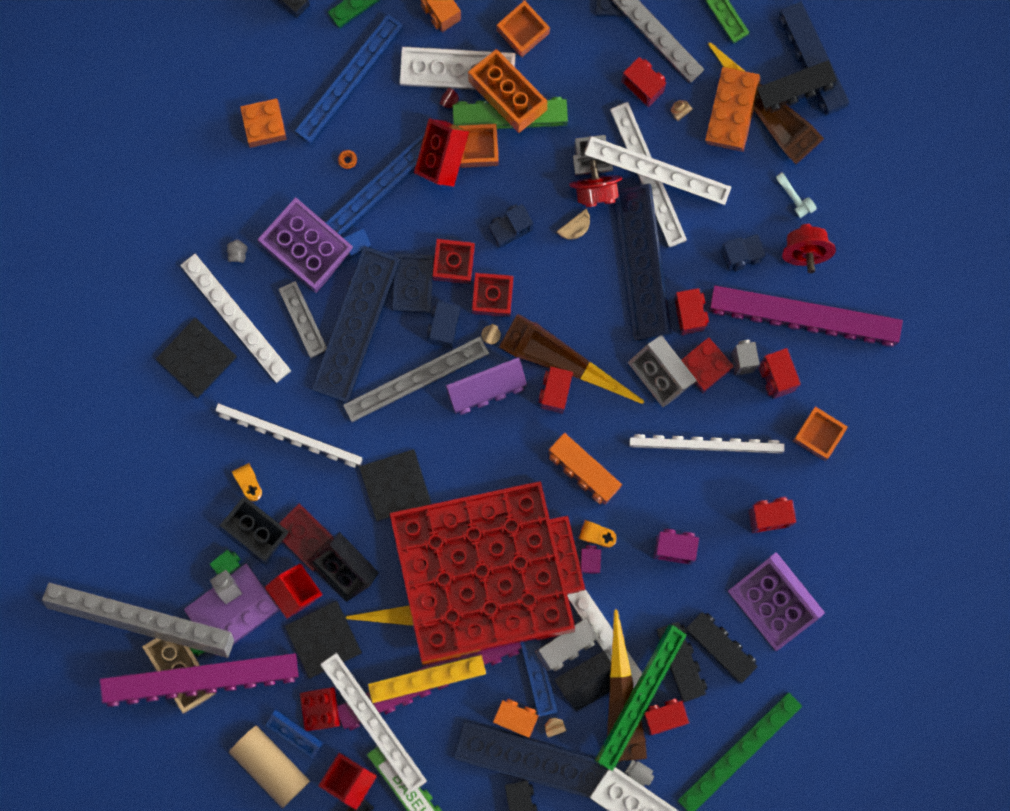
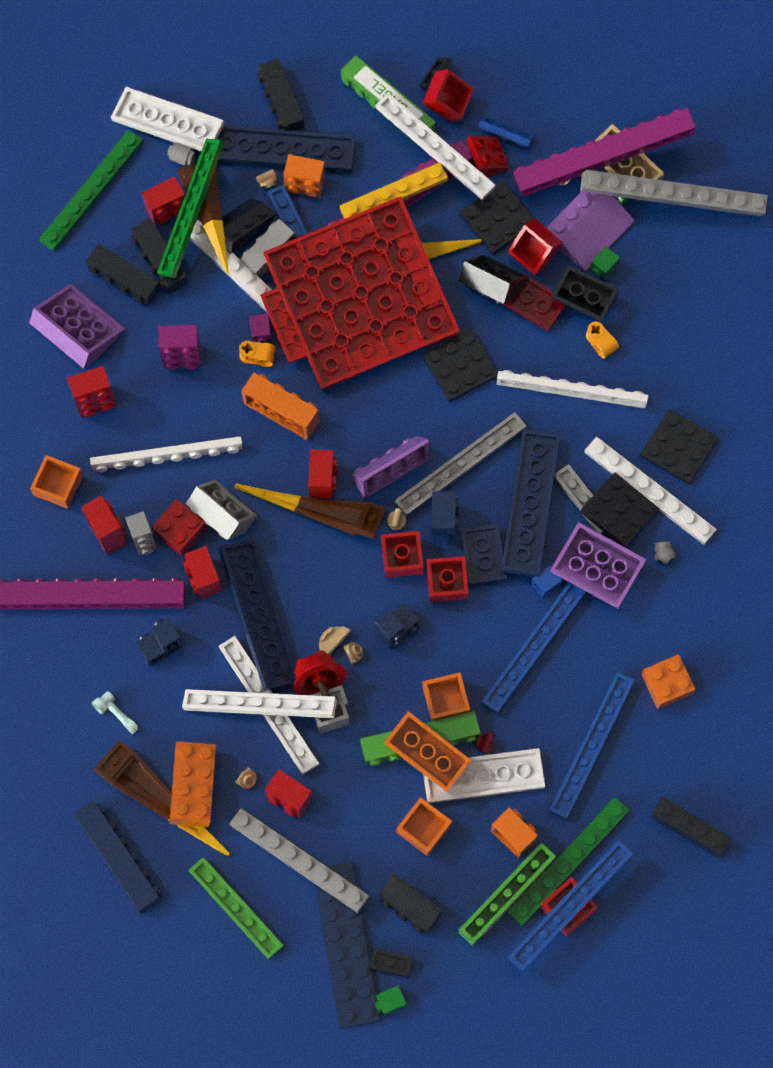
camera: 175 degrees right, 10 degrees down
(226, 587) = (599, 238): light grey brick -> none
(269, 766) = (522, 101): tan brick -> none
(270, 300) = (619, 510): none -> black plate
(347, 153) = (575, 658): orange plate -> none
(441, 152) = (481, 678): red brick -> none
(556, 211) = (354, 652): none -> tan plate
(797, 86) = (129, 816): black brick -> none
(808, 247) = (95, 657): red piece -> none

